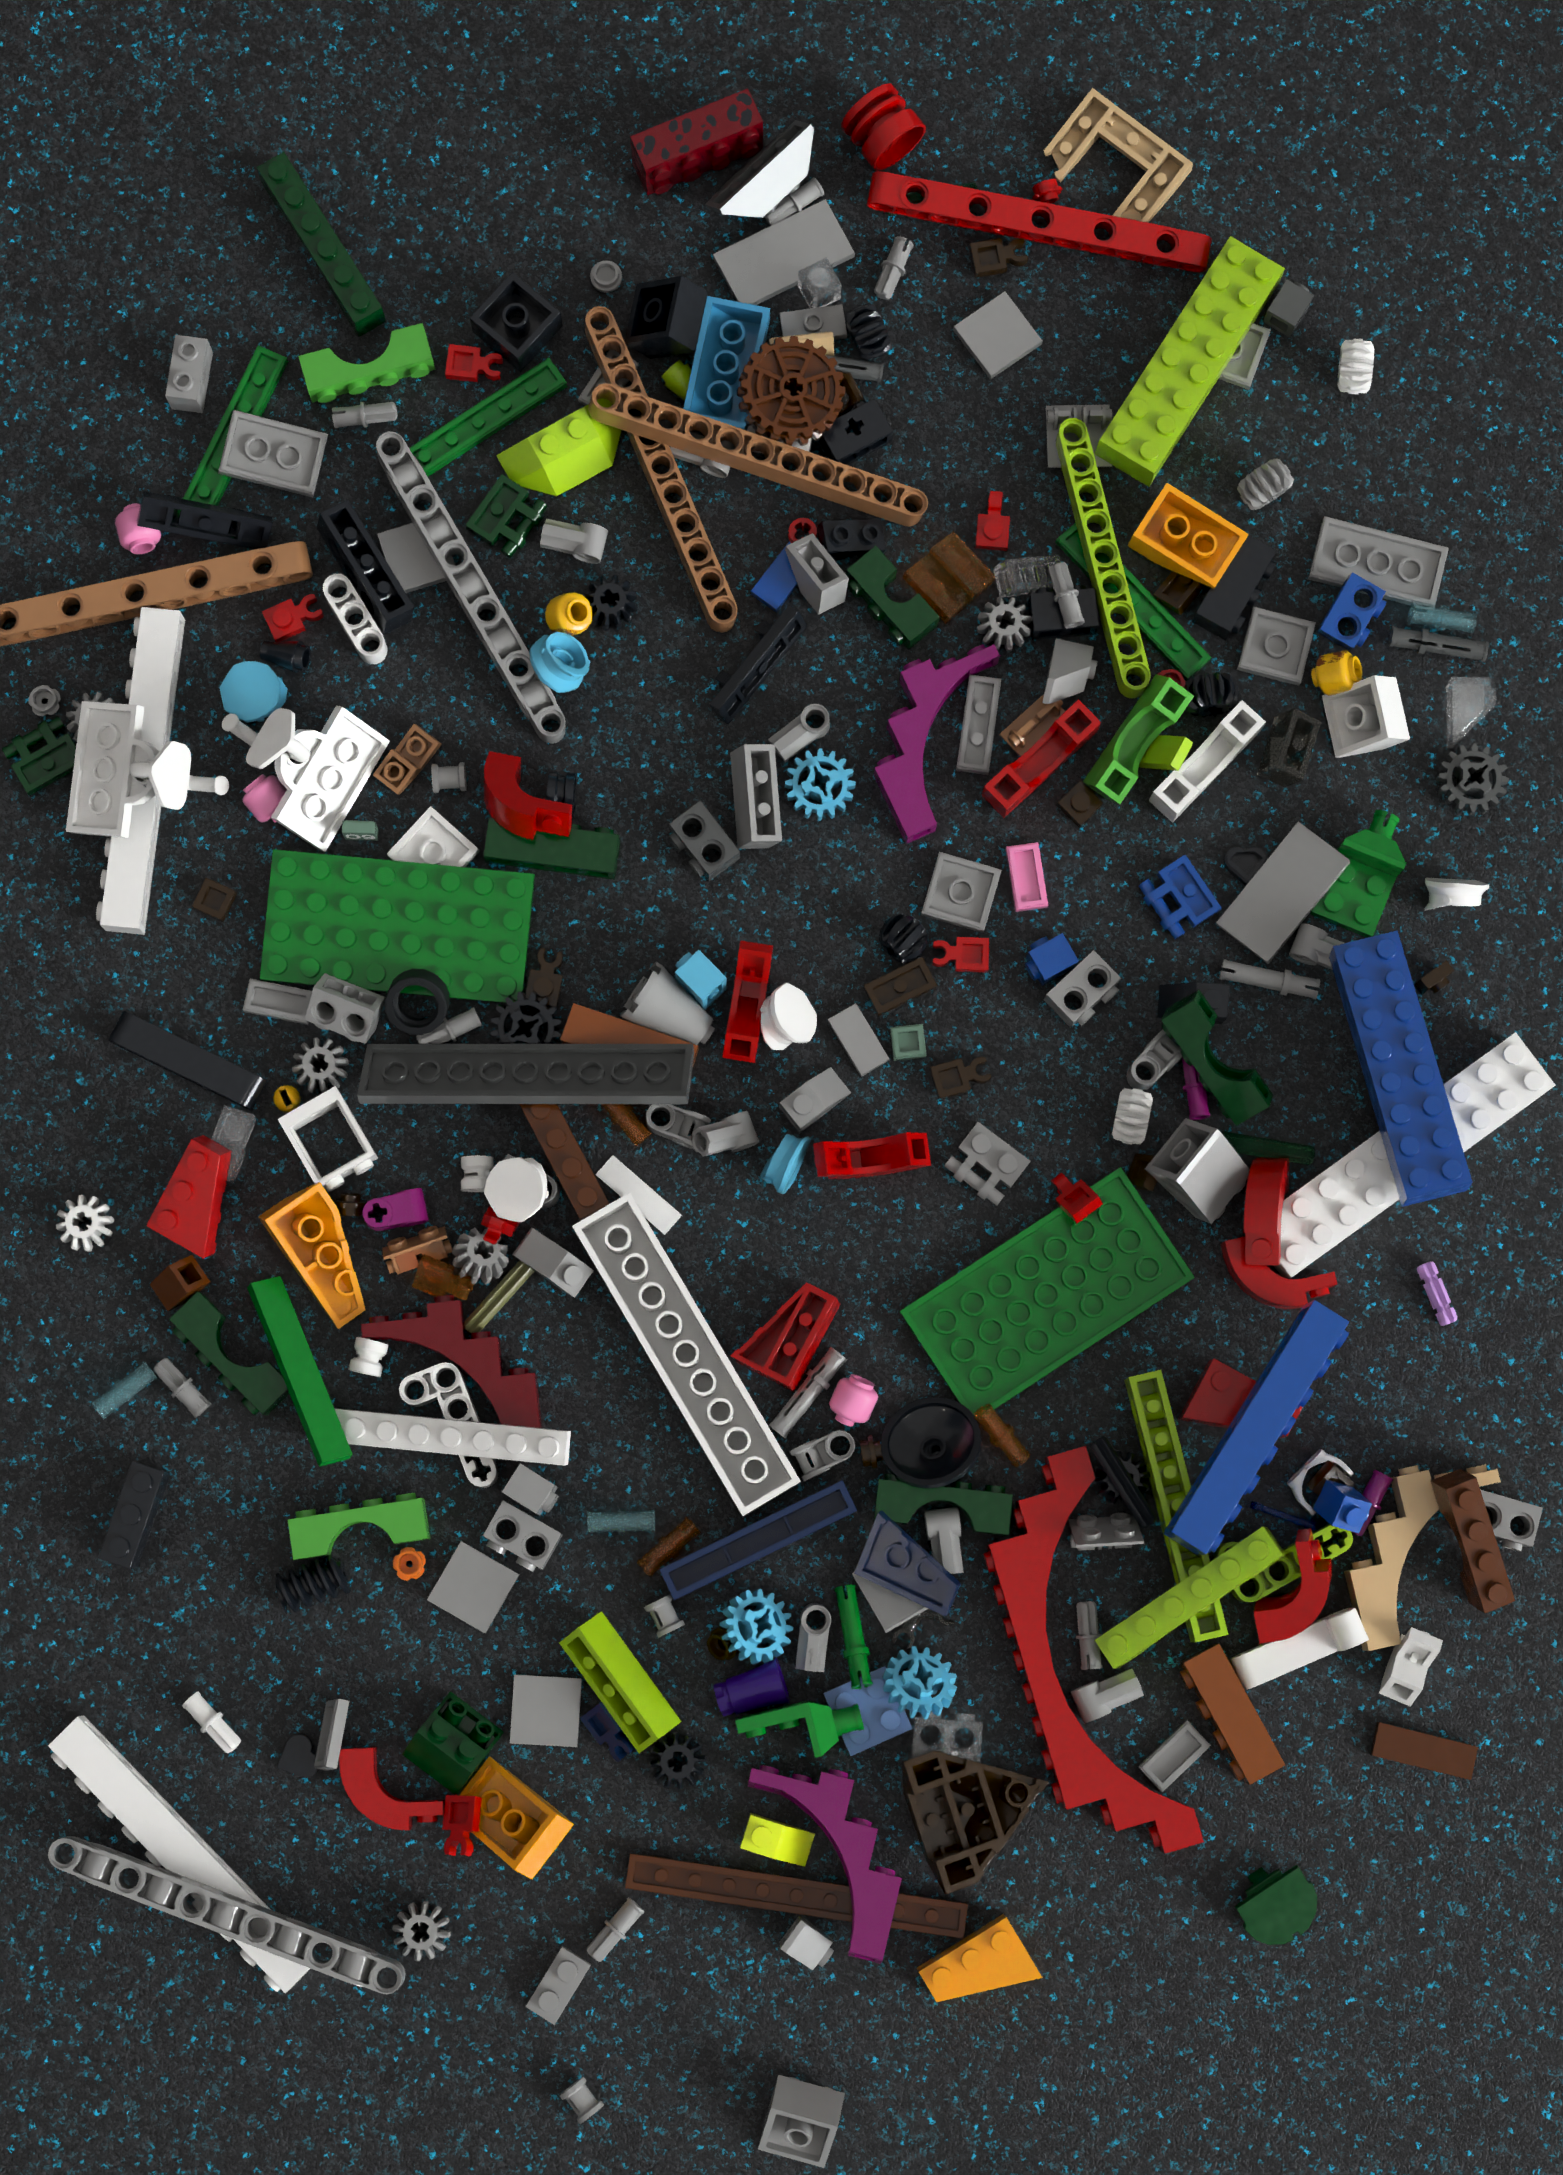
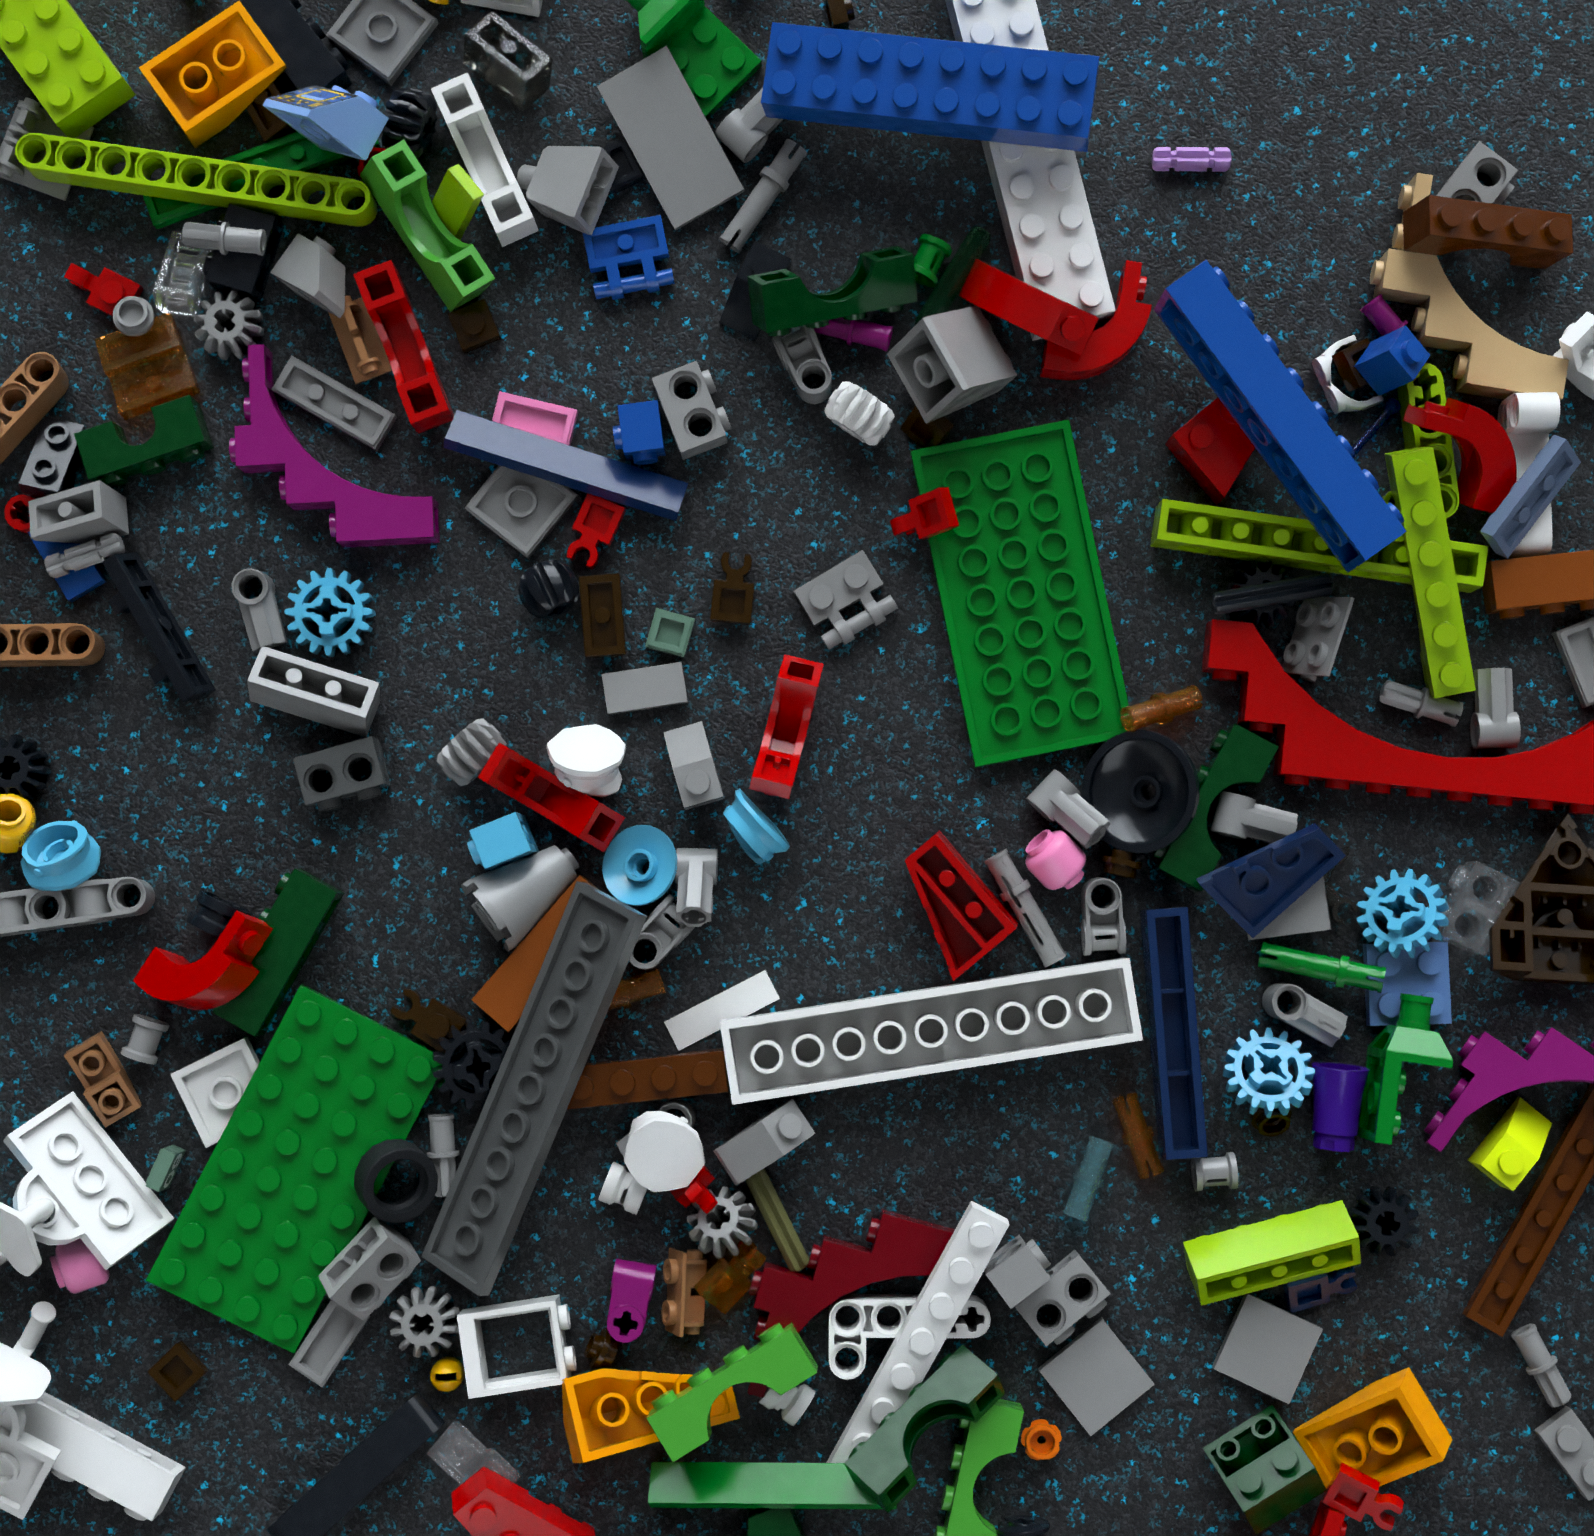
camera: 60 degrees left, 5 degrees up
(326, 1284) = (776, 1362): none -> bright green arch
(424, 1479) = (957, 1389): none -> arch
(723, 1077) = (625, 861): none -> medium azure dish
(757, 927) = (469, 751): none -> light grey gear
(788, 589) = (84, 555): none -> light grey axle
(898, 1388) = (1061, 803): none -> light grey piece
(981, 552) = (133, 316): none -> light grey plate
(1002, 913) = (565, 465): none -> tile
(1188, 637) = (332, 118): none -> light blue slope
(1215, 831) = (570, 184): none -> light grey torso
(1273, 1123) = (929, 259): none -> green bush
(1280, 1652) = (1530, 496): none -> sand blue plate

